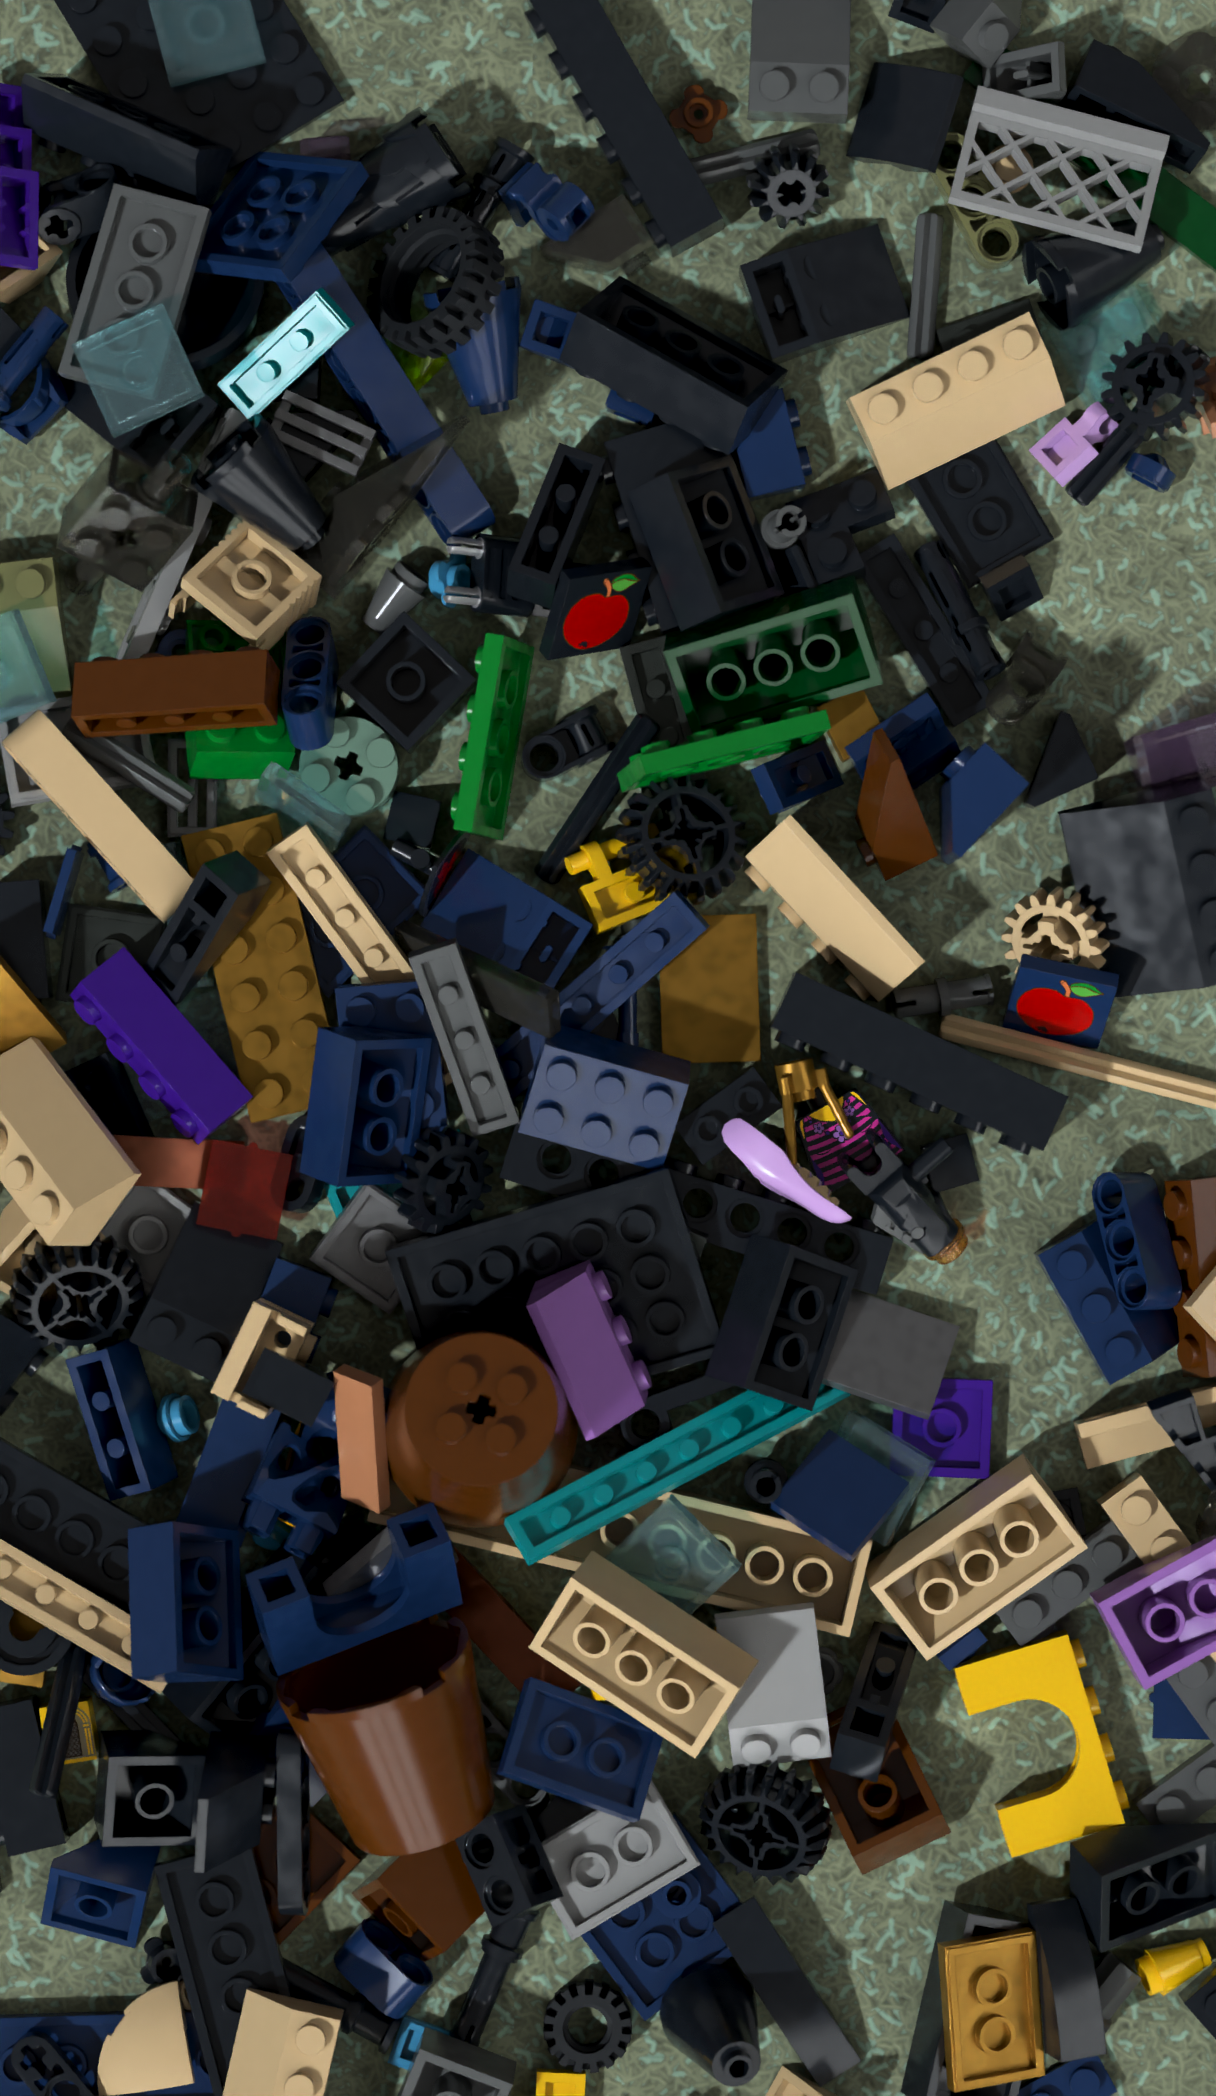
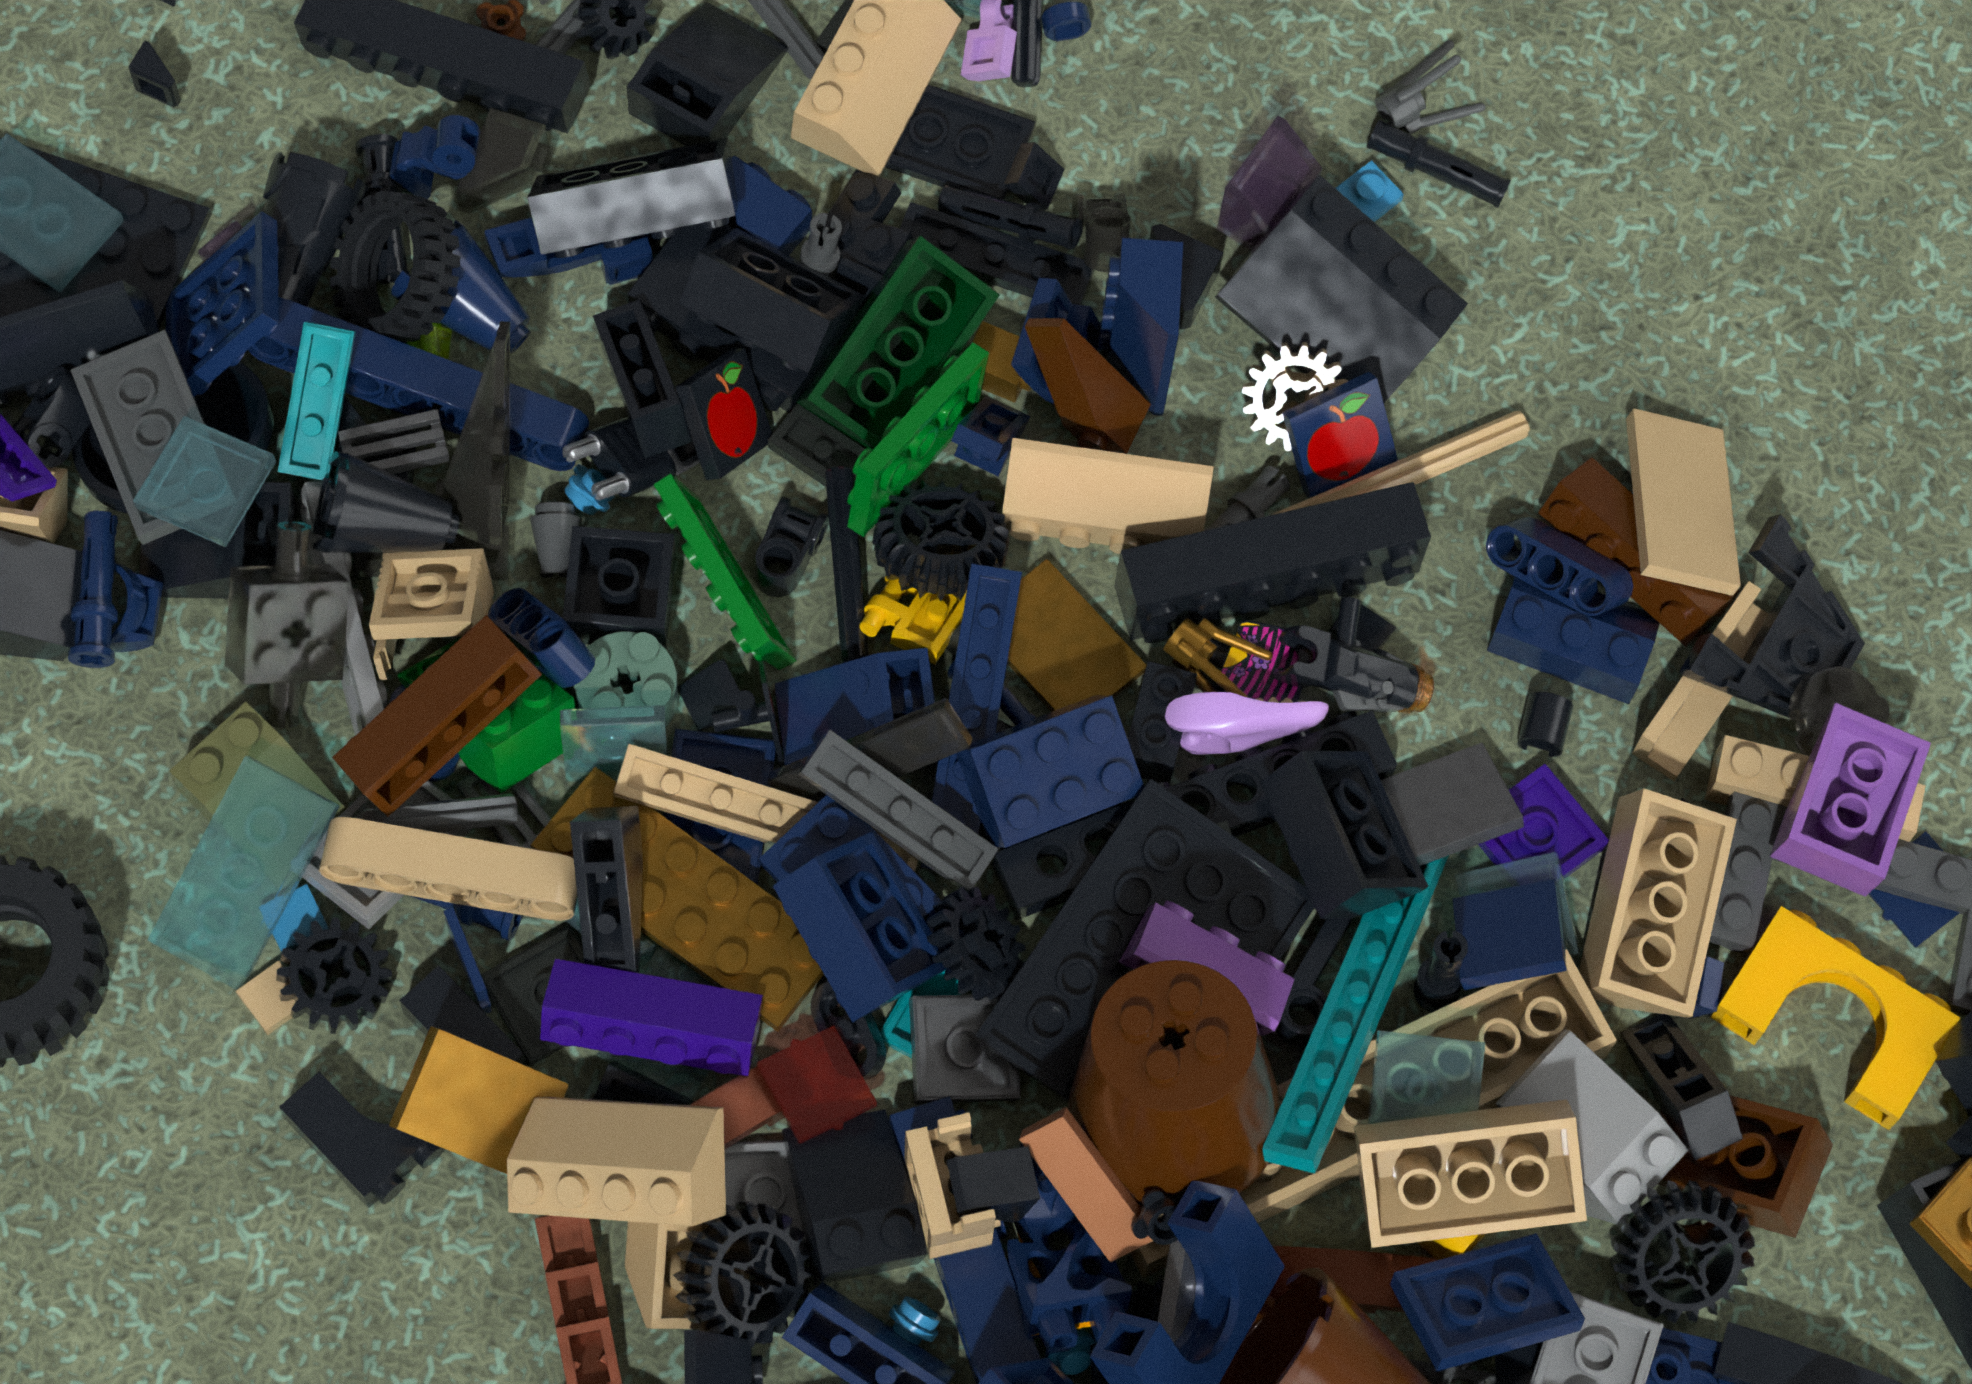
camera: 55 degrees left, 20 degrees down
(390, 1502) = (1147, 1223): none -> black plate
(1022, 1349) = (1545, 723): none -> black beam

